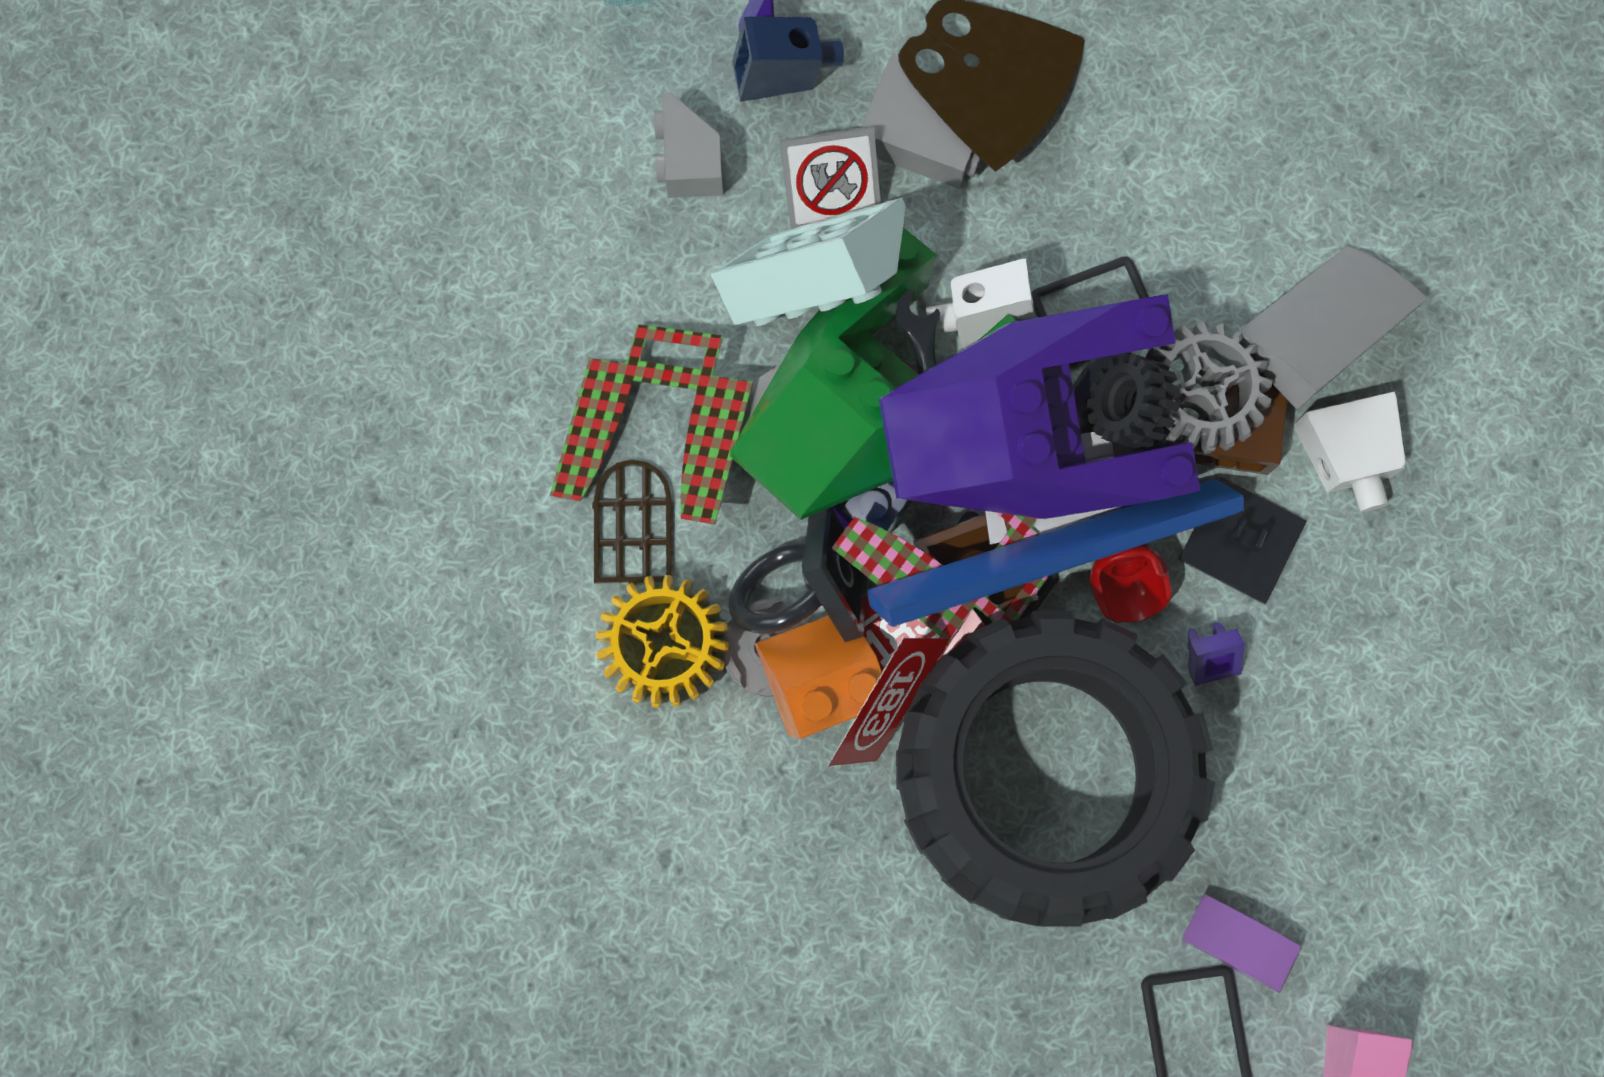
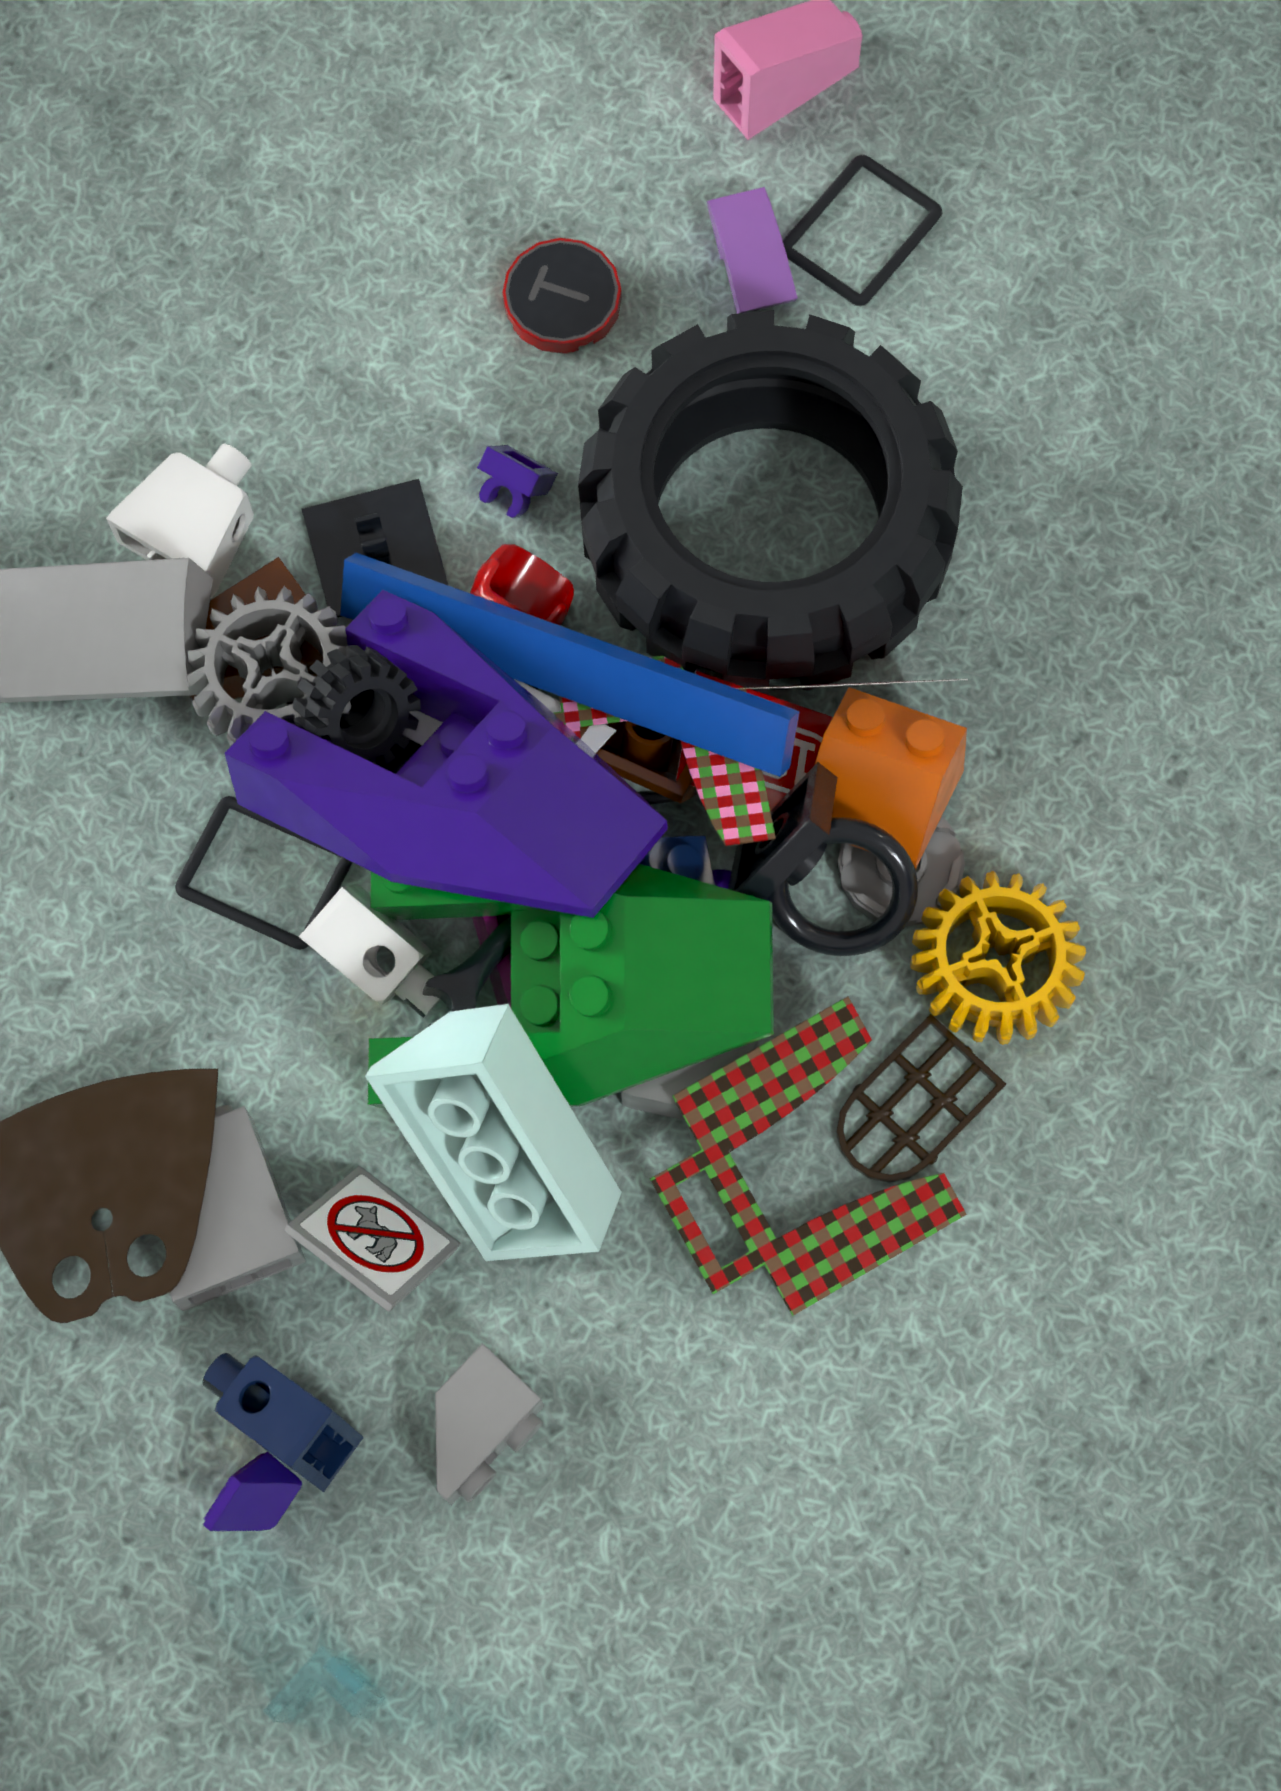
camera: 130 degrees left, 5 degrees down
(1316, 799) = (562, 295): none -> black tile

